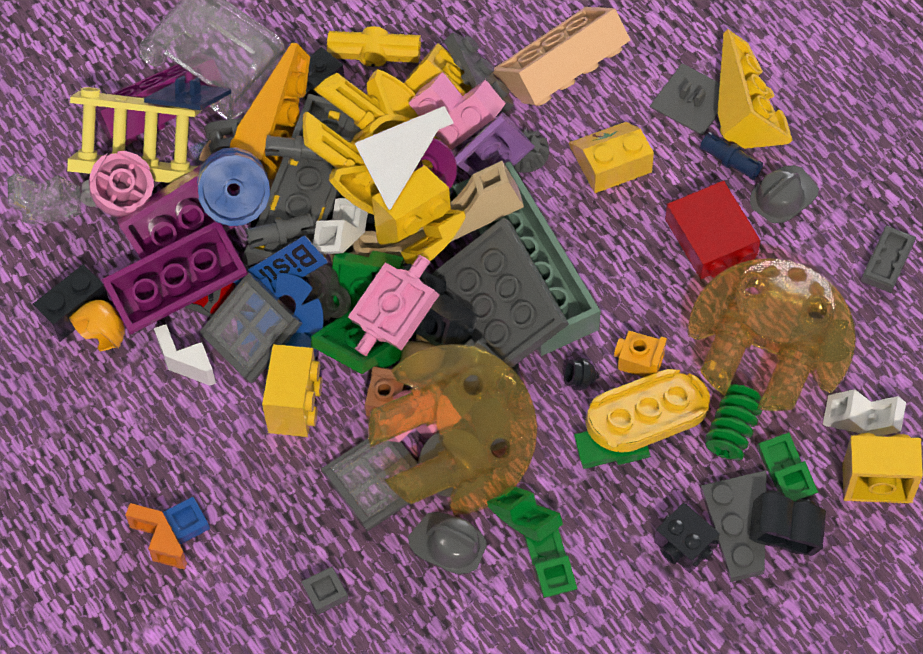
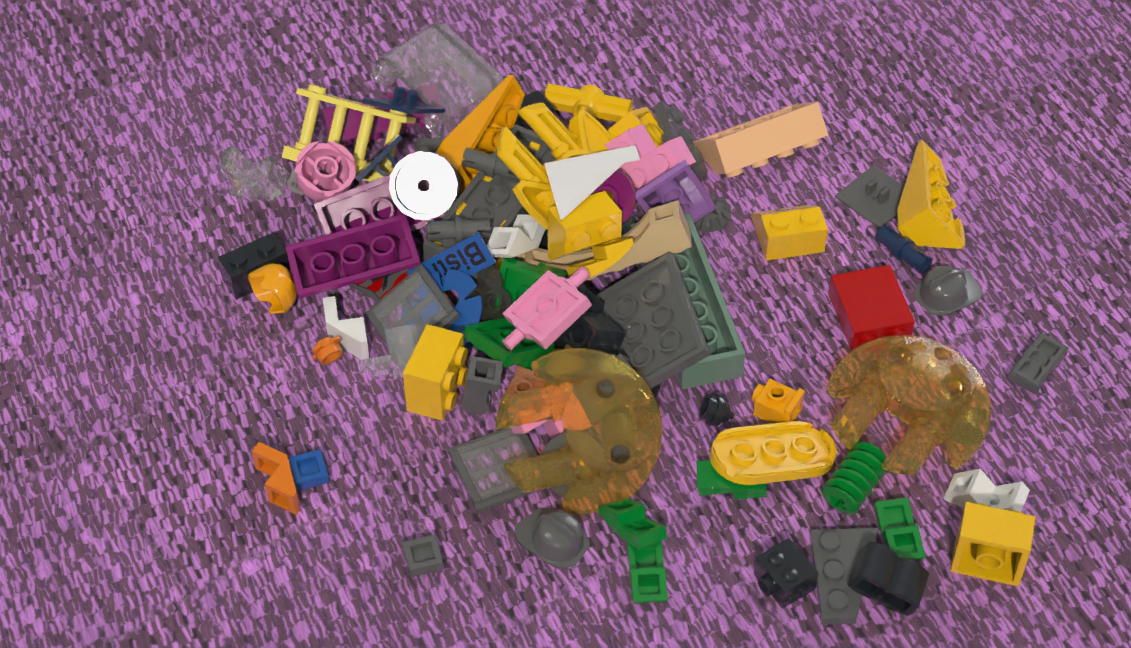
camera: 10 degrees right, 10 degrees down
(172, 383) = (327, 350): none -> orange plate
(175, 160) = (383, 152): none -> dark blue piece
(252, 370) = (401, 345): none -> clear brick
(339, 392) = (480, 380): none -> dark grey leg

